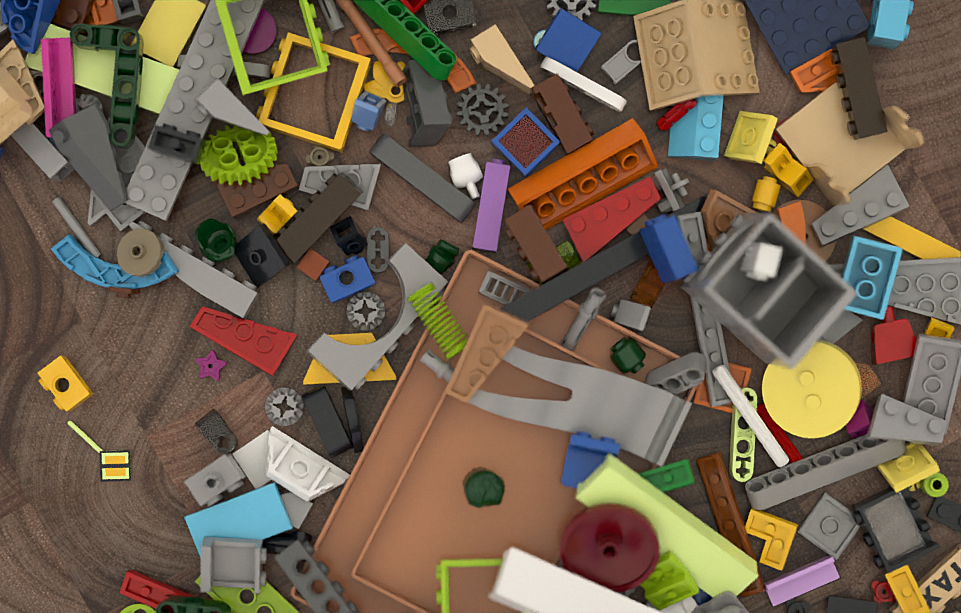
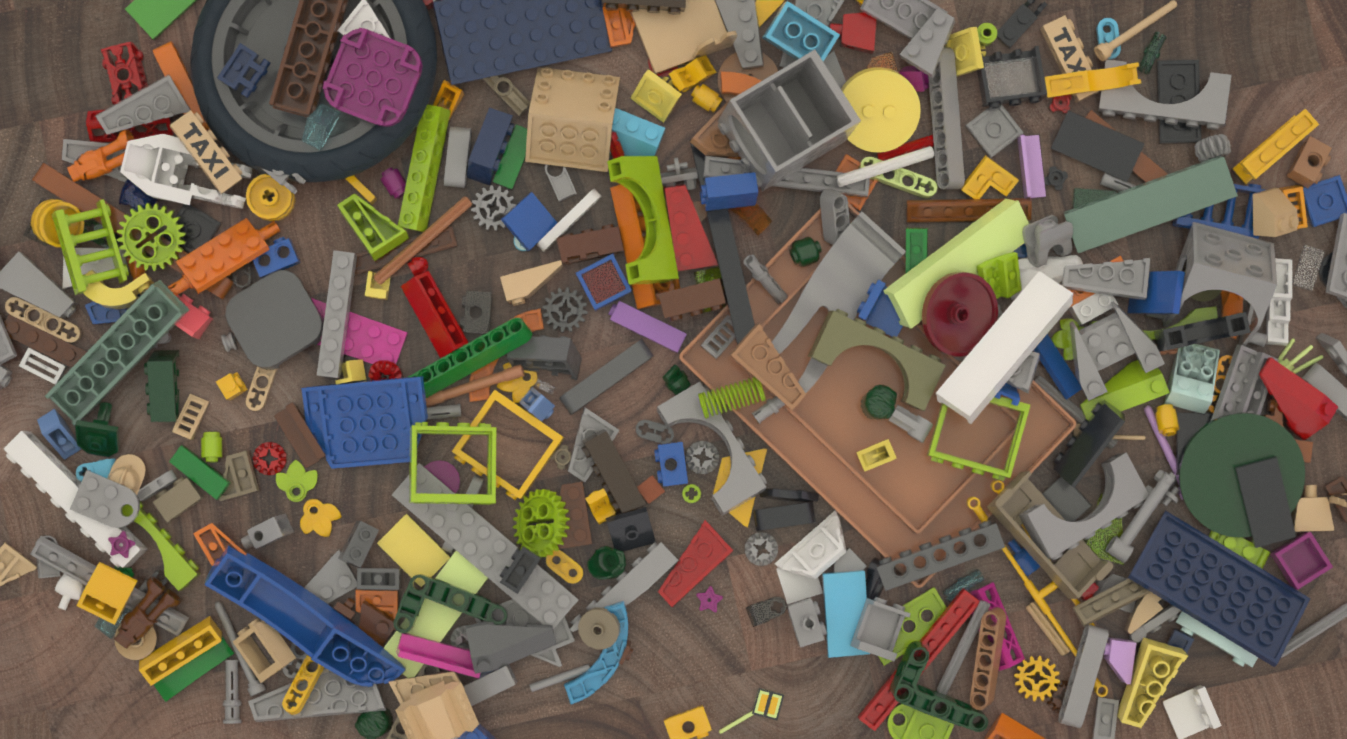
camera: 80 degrees left, 0 degrees up
(198, 195) = (565, 565): none -> yellow plate
(224, 106) = (499, 521): light grey slope -> none
(326, 305) = (686, 489): none -> lime bush
(351, 242) = (642, 451): black brick -> none
(423, 502) = (876, 455): none -> light yellow slope
(465, 173) = (613, 339): white piece -> none
(469, 536) = (914, 425): none -> light grey piece
(532, 521) = (918, 370): none -> olive arch
(630, 315) = (772, 239): light grey slope -> none
(652, 151) = (643, 180): none -> lime arch
(761, 261) = (764, 118): white brick -> none

